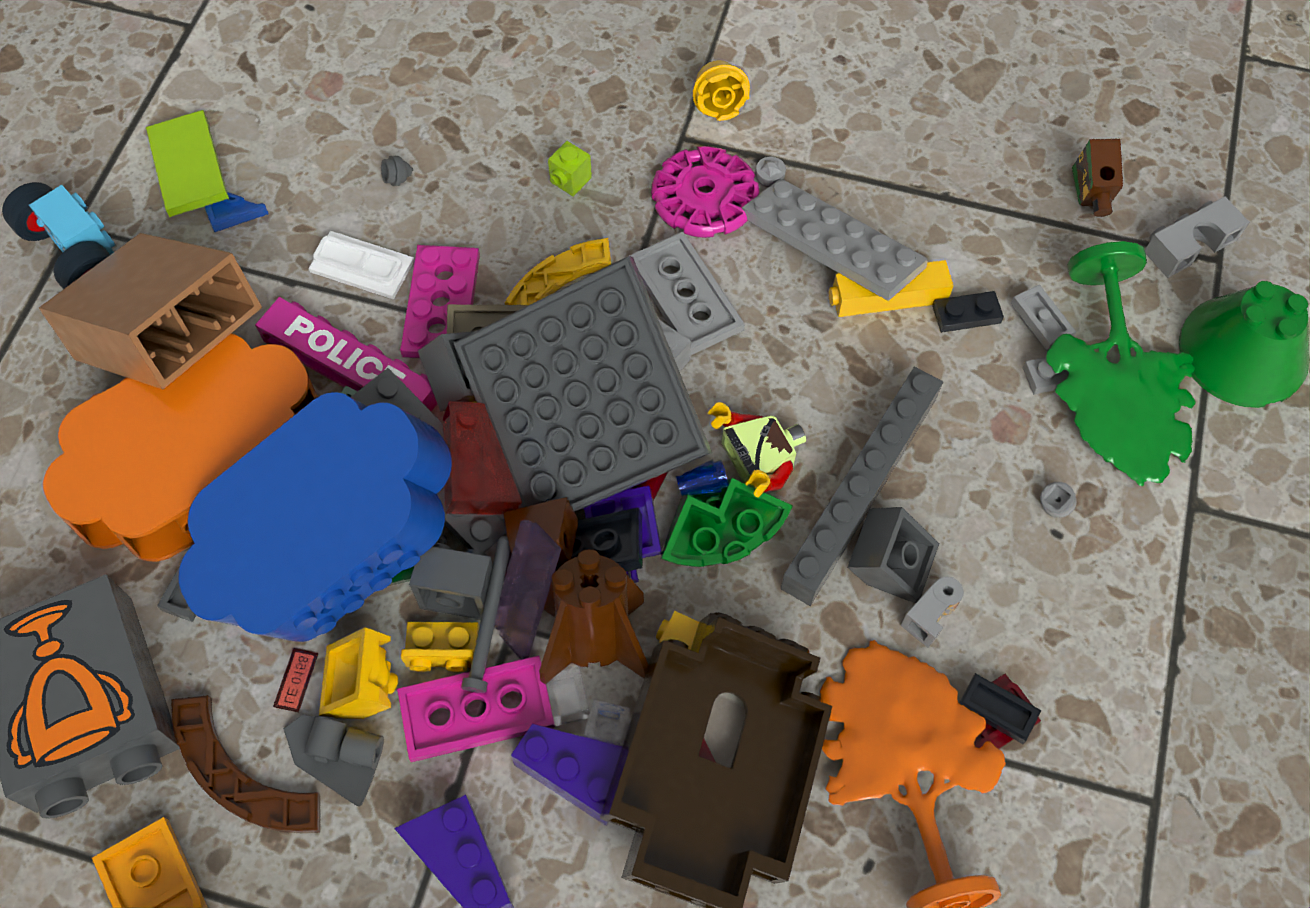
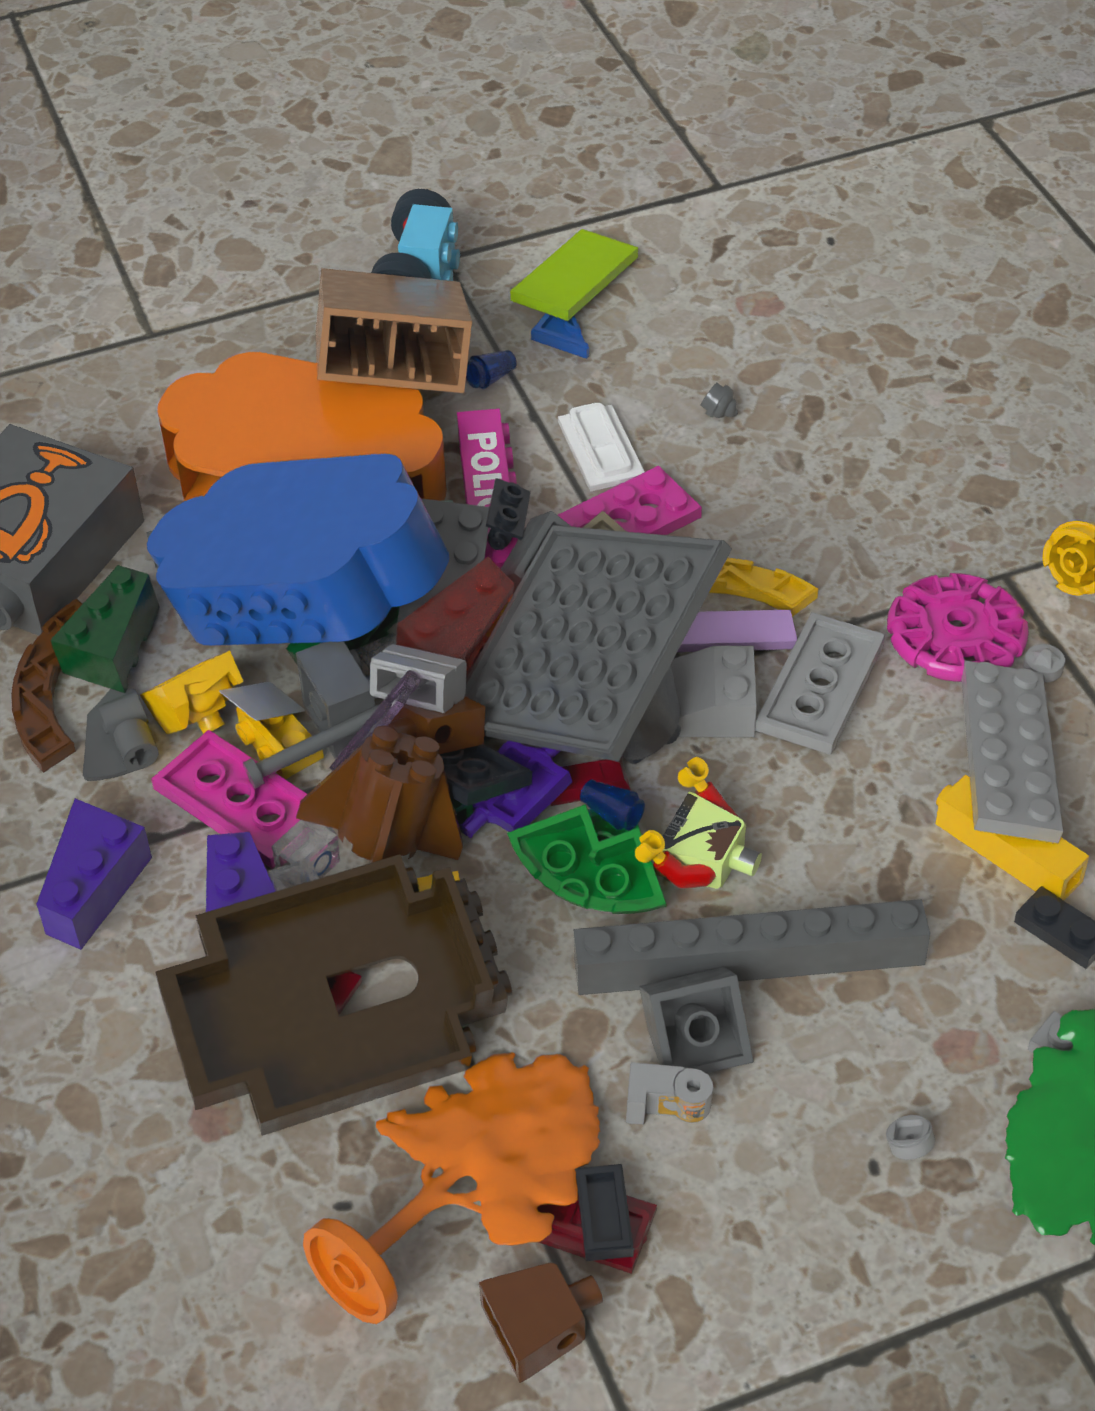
camera: 55 degrees right, 15 degrees down
(234, 697) = (108, 629): none -> dark green wedge
(295, 680) = (163, 667): clear red sticker -> none
(391, 354) = (506, 513): none -> black hinge
(412, 635) = (262, 701): none -> white sticker
(500, 521) = (441, 676): none -> light grey brick
(570, 168) = (858, 510): lime brick -> none
(1046, 801) = (537, 1315): none -> reddish brown torso

